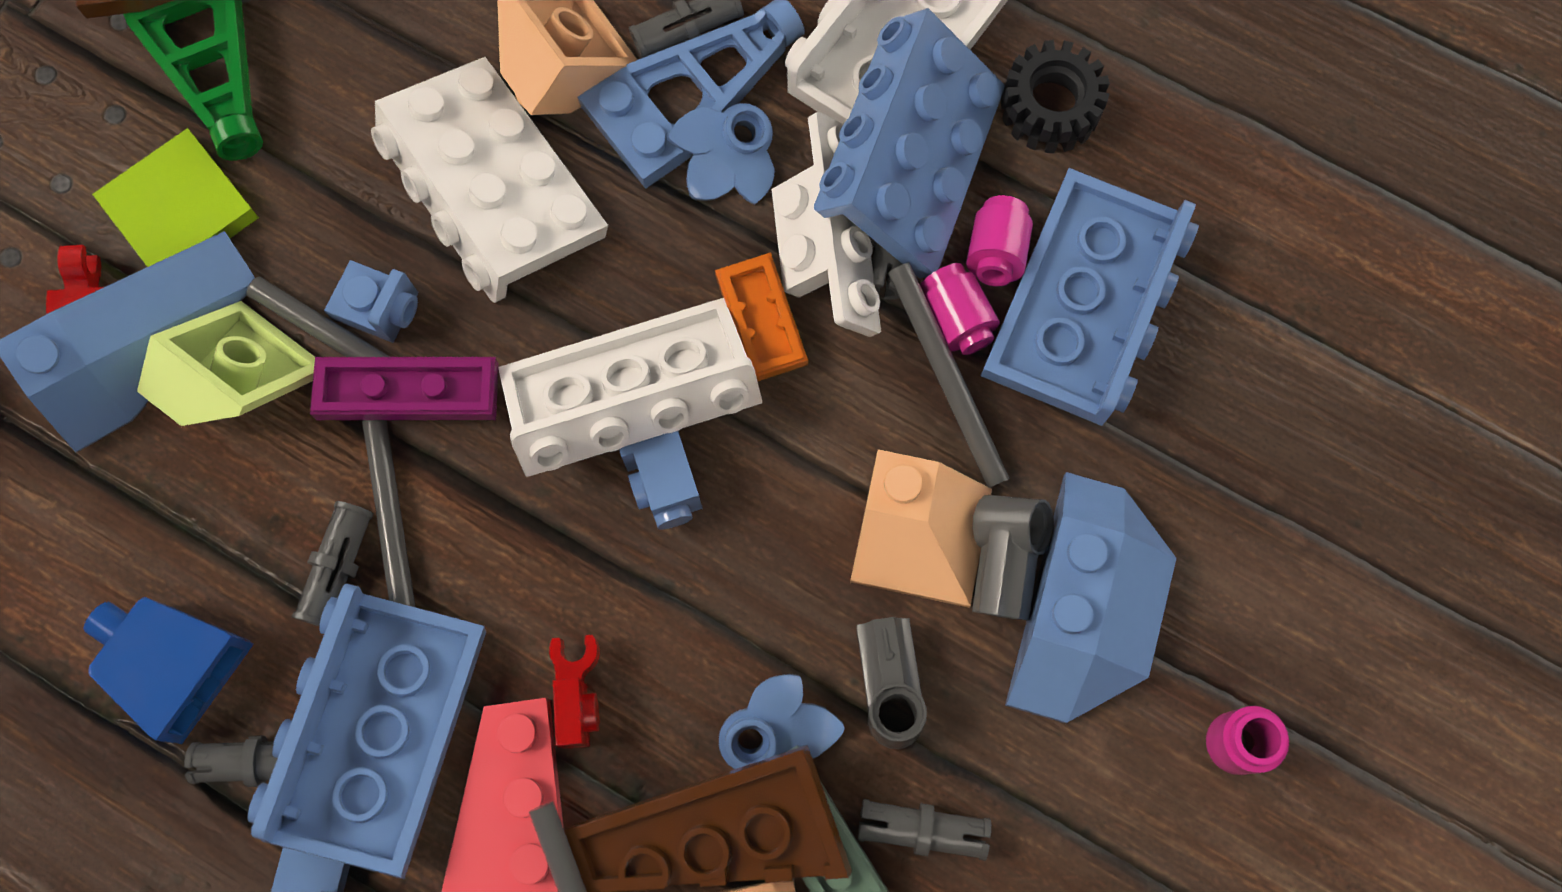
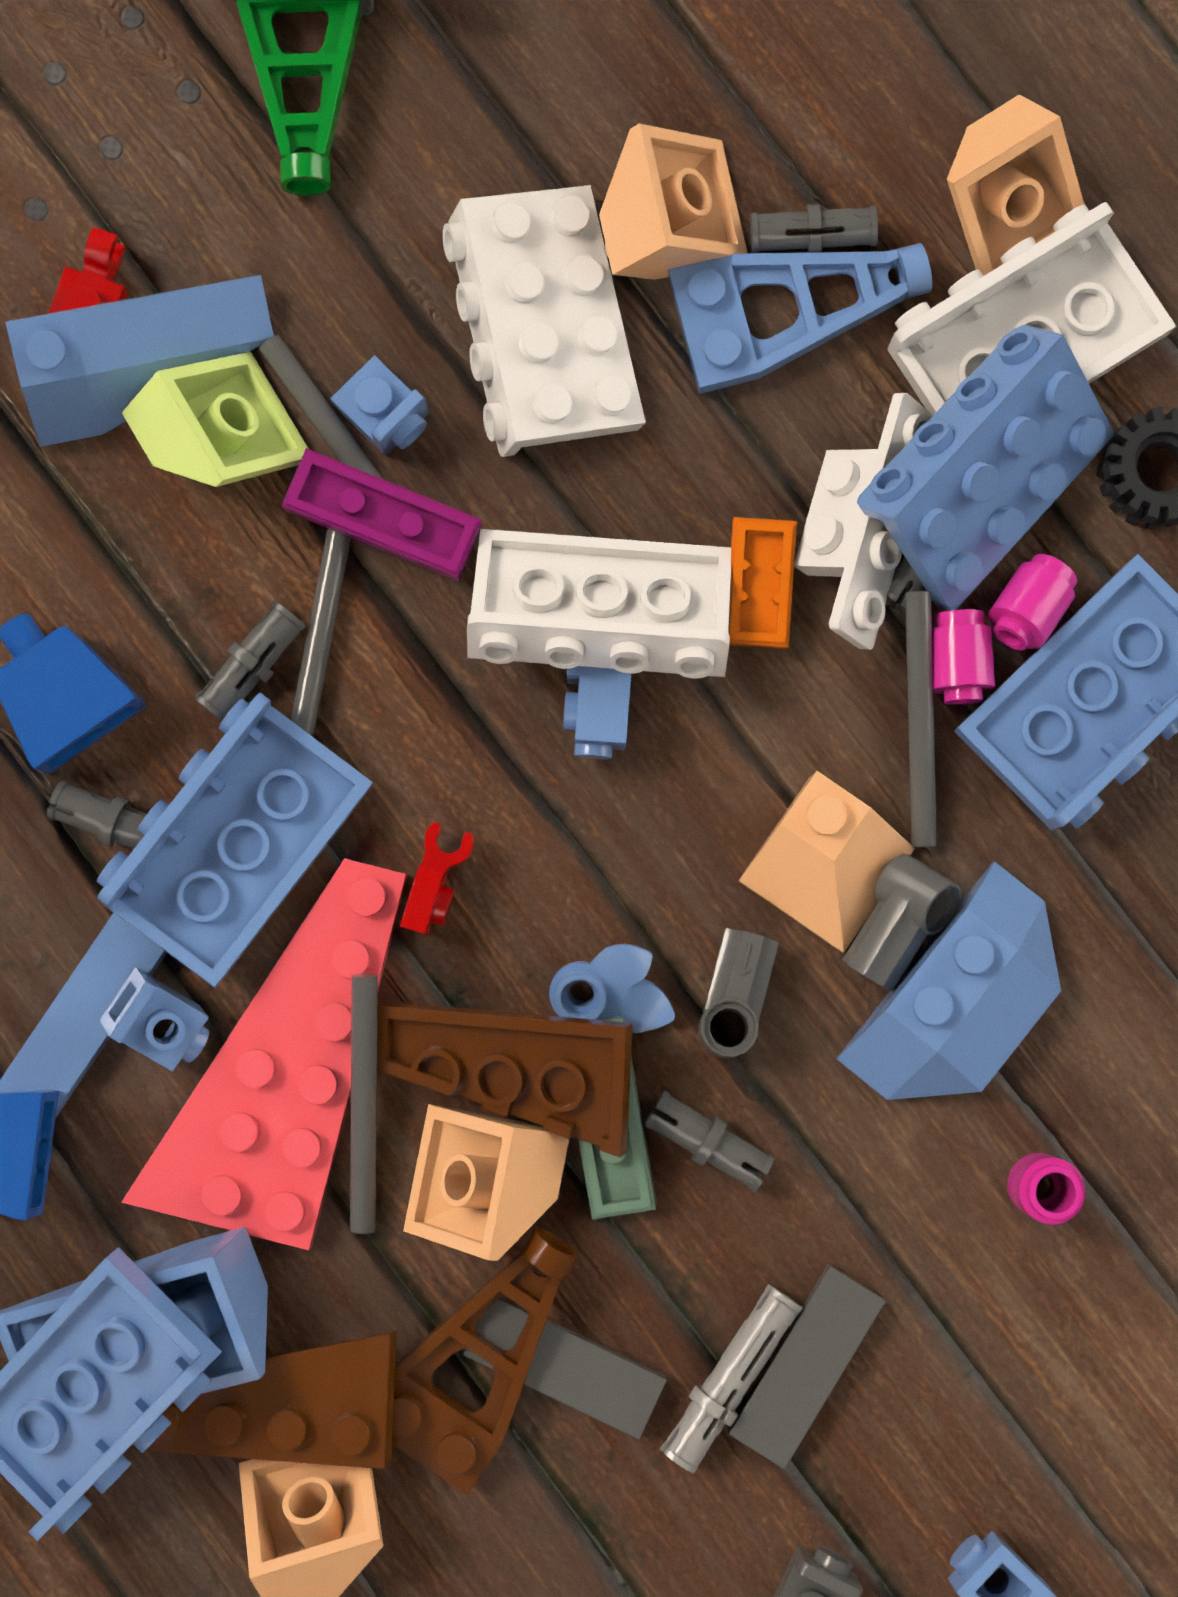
camera: 20 degrees right, 10 degrees up
(174, 200) = (219, 219): lime tile -> none
(720, 158) = (787, 395): medium blue plate -> none

